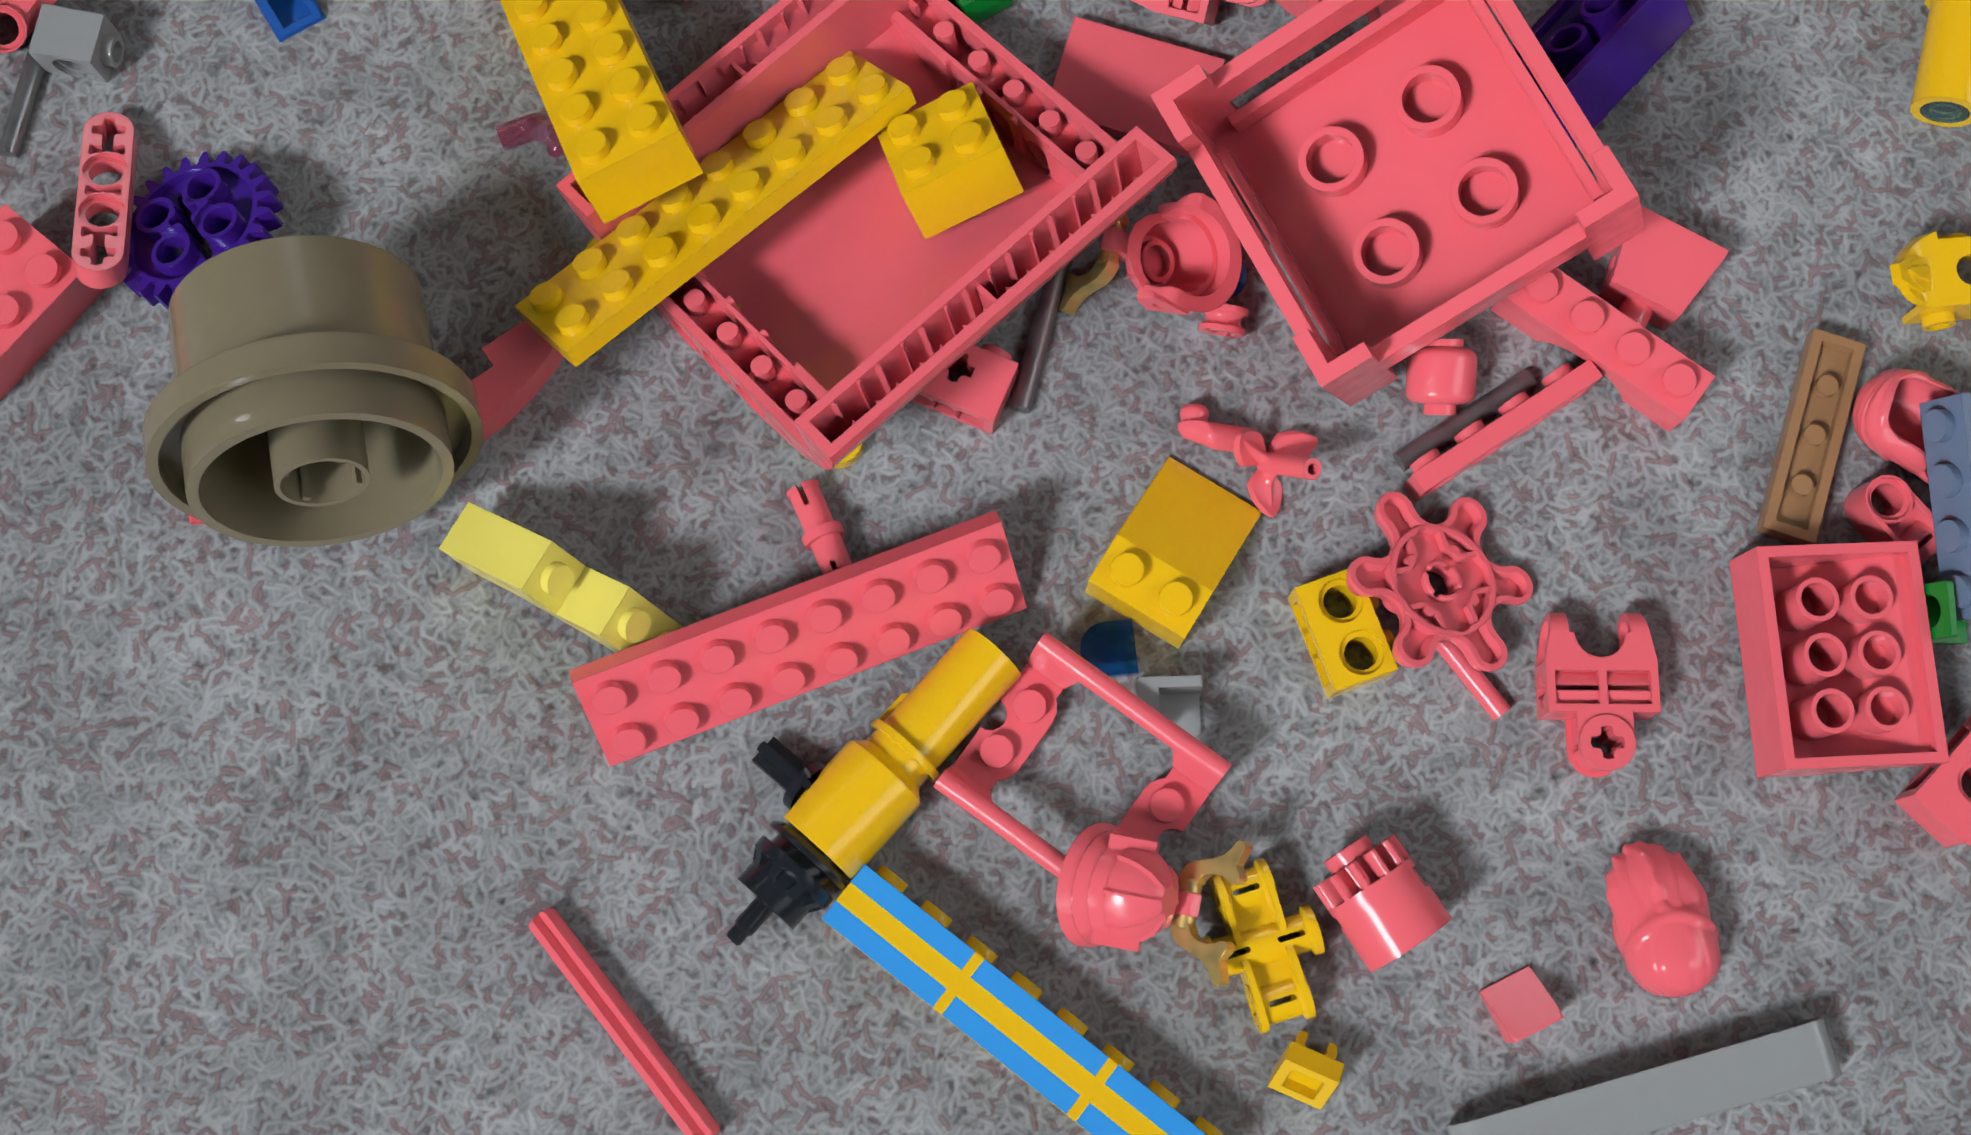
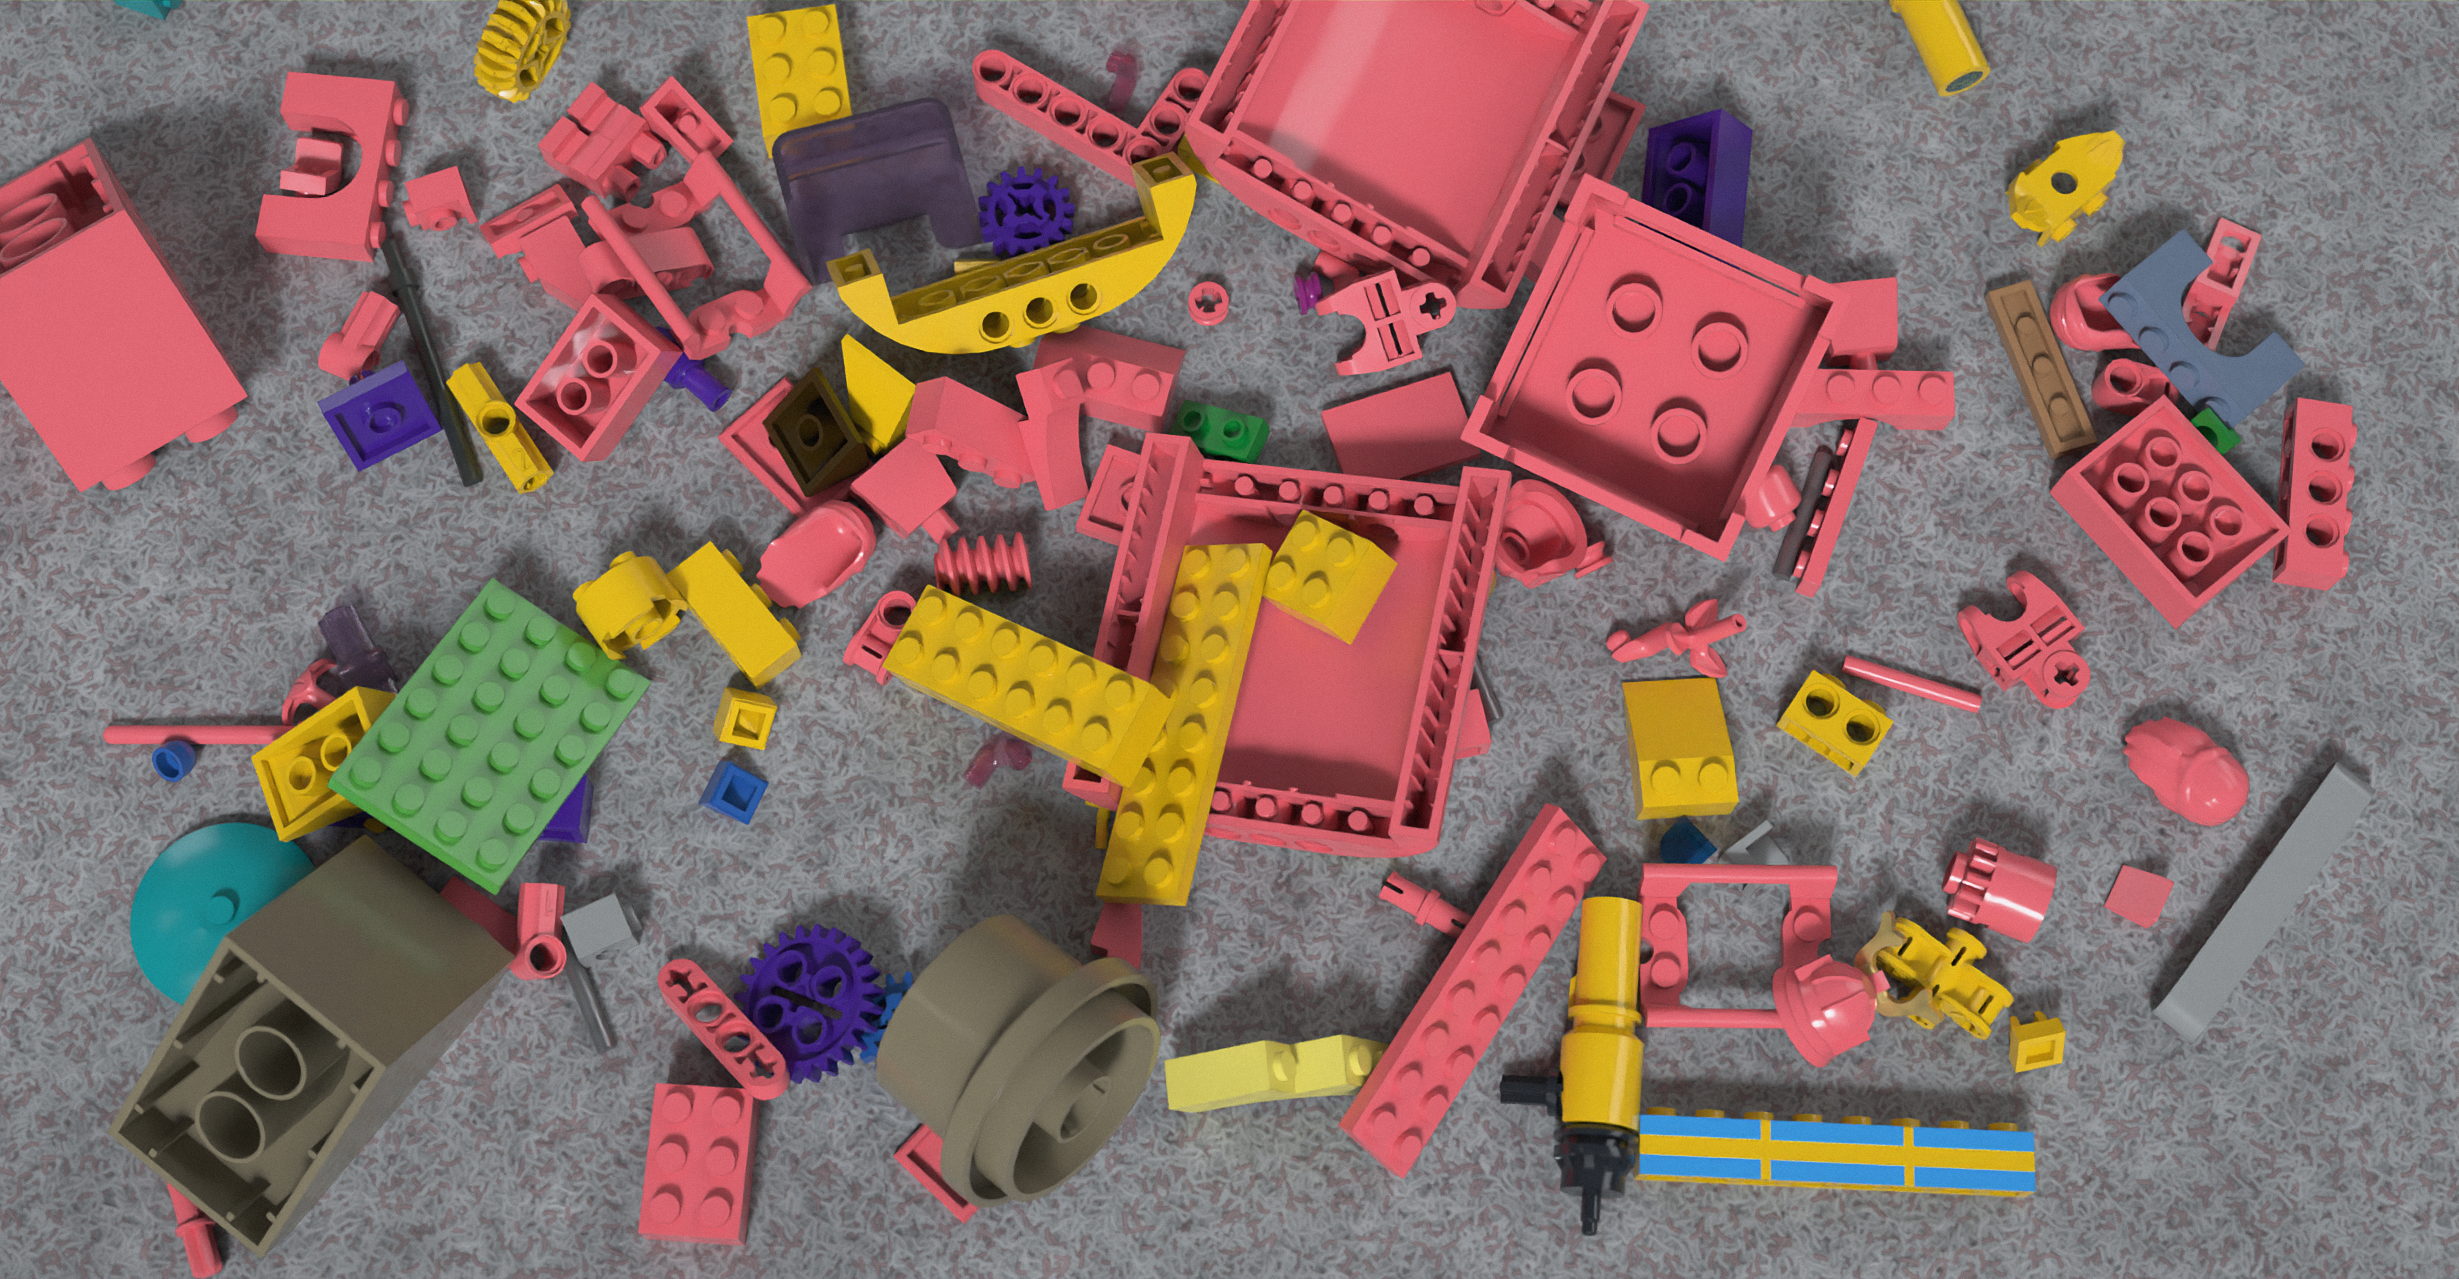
camera: 35 degrees left, 5 degrees down
(1470, 579) = (1889, 624): coral plate -> none

